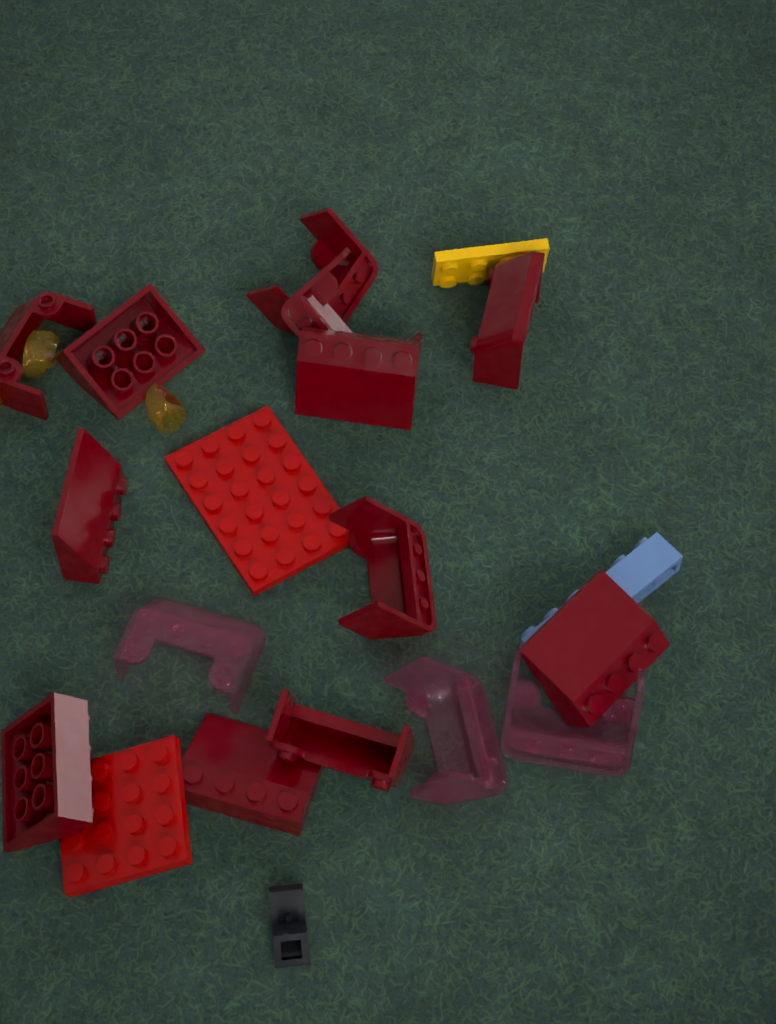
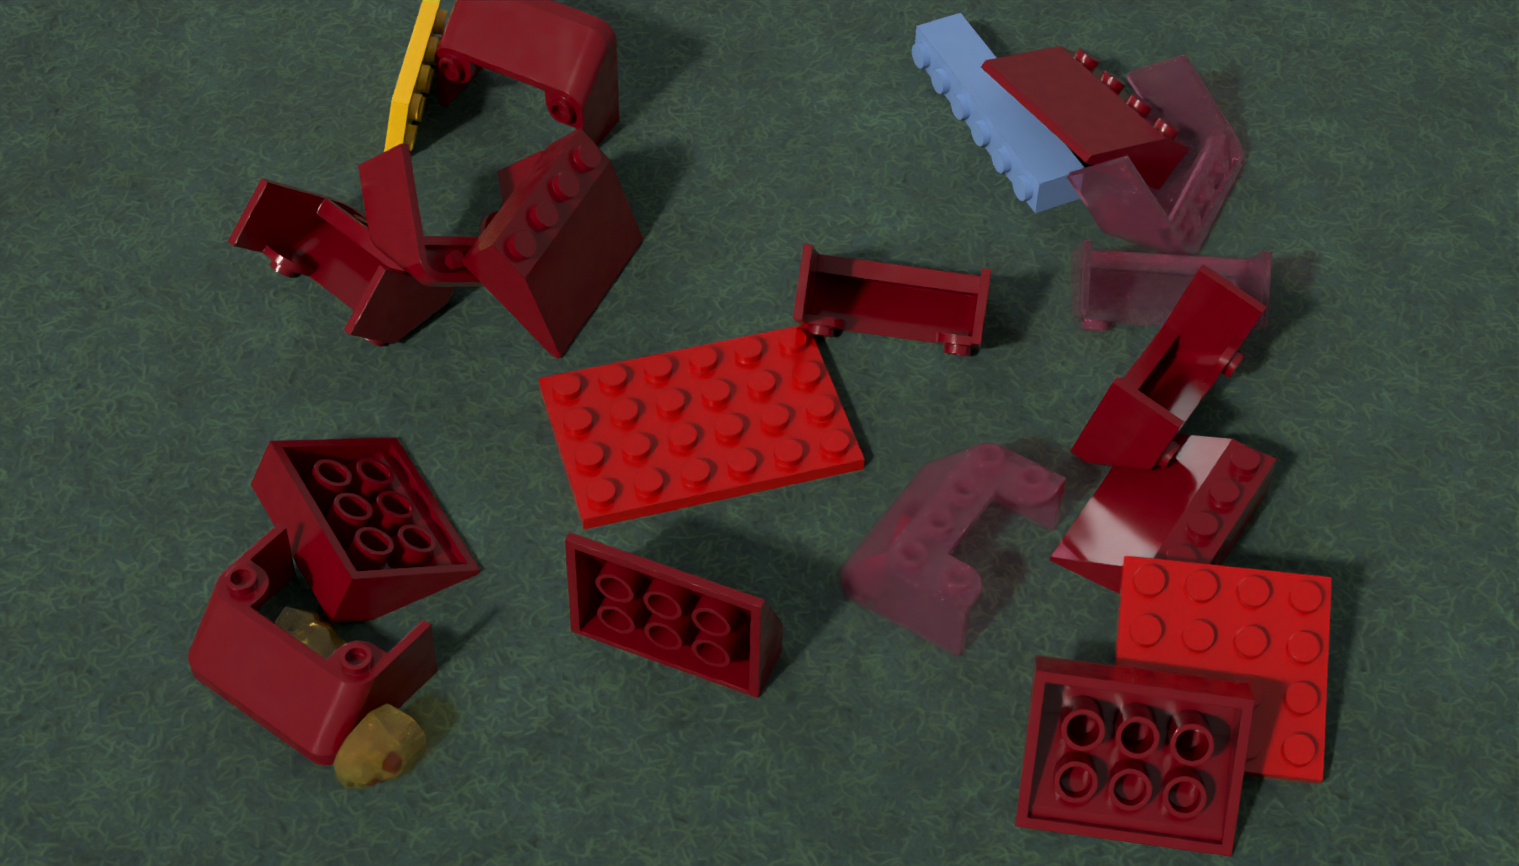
camera: 75 degrees left, 10 degrees down
(164, 409) = (492, 501): clear yellow rock -> none
(289, 925) = (1417, 528): black slope -> none

